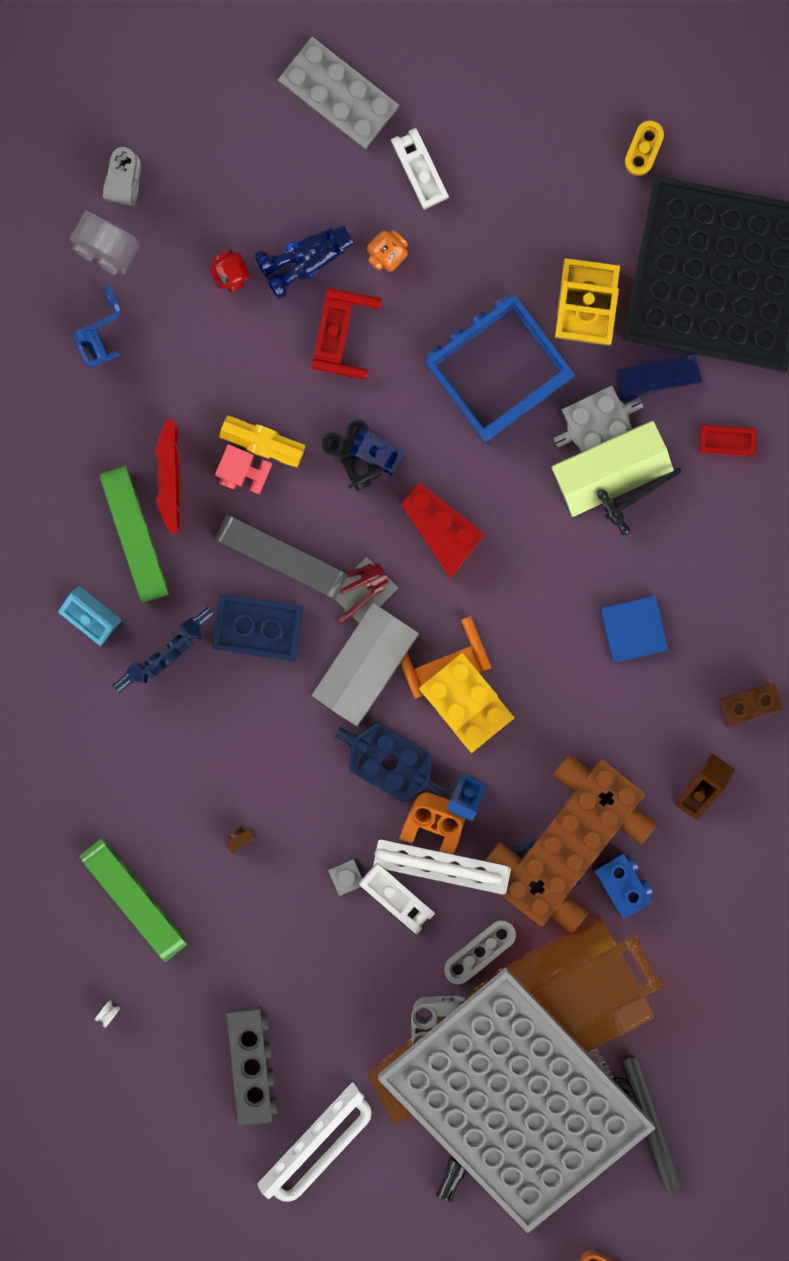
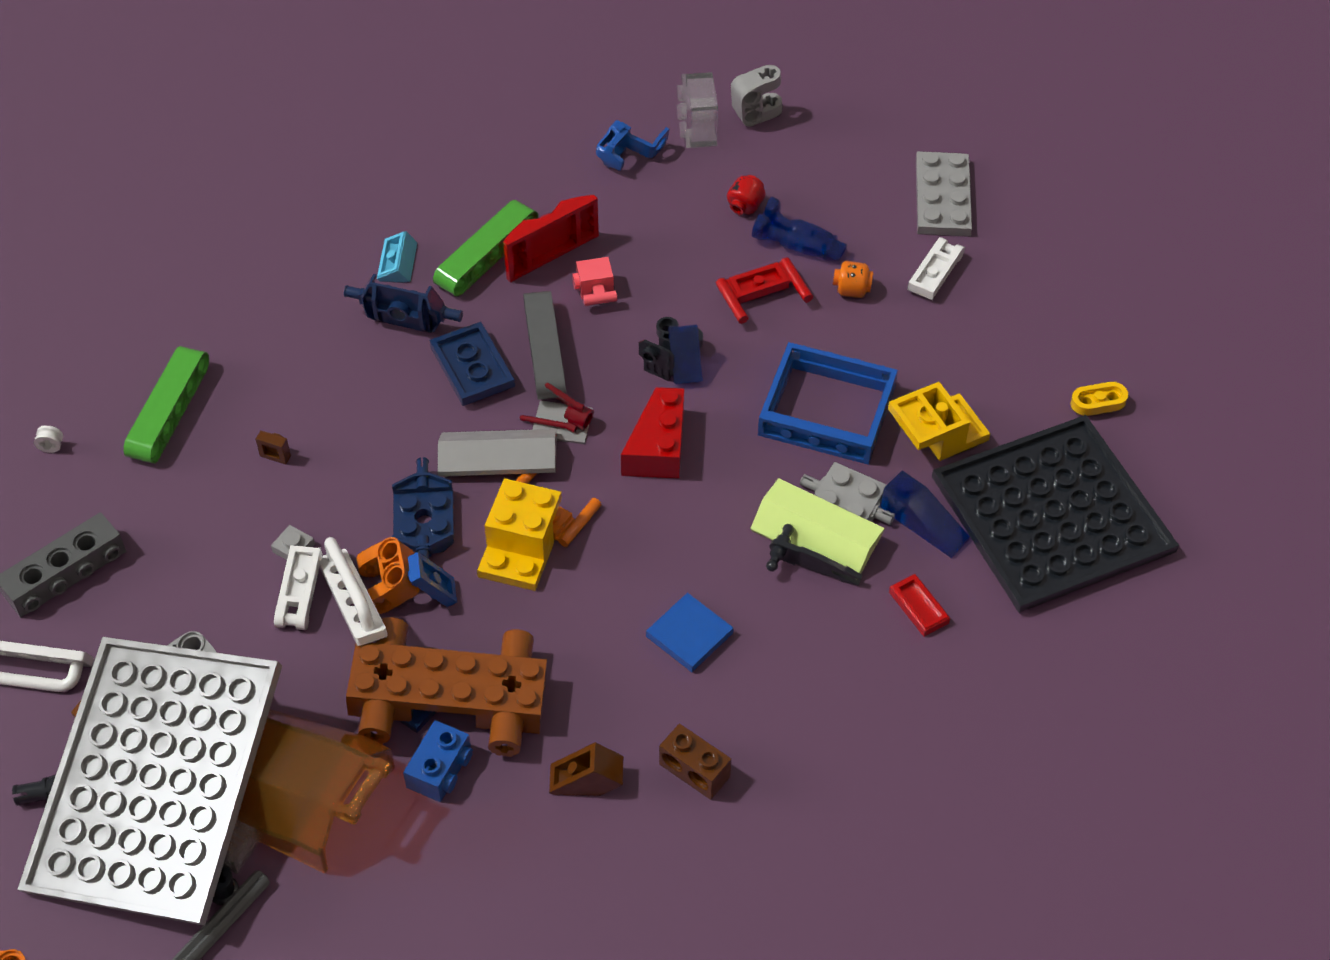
camera: 50 degrees right, 35 degrees down
(262, 441) = (630, 285): yellow piece -> none
(493, 948) = (307, 686): light grey plate -> none

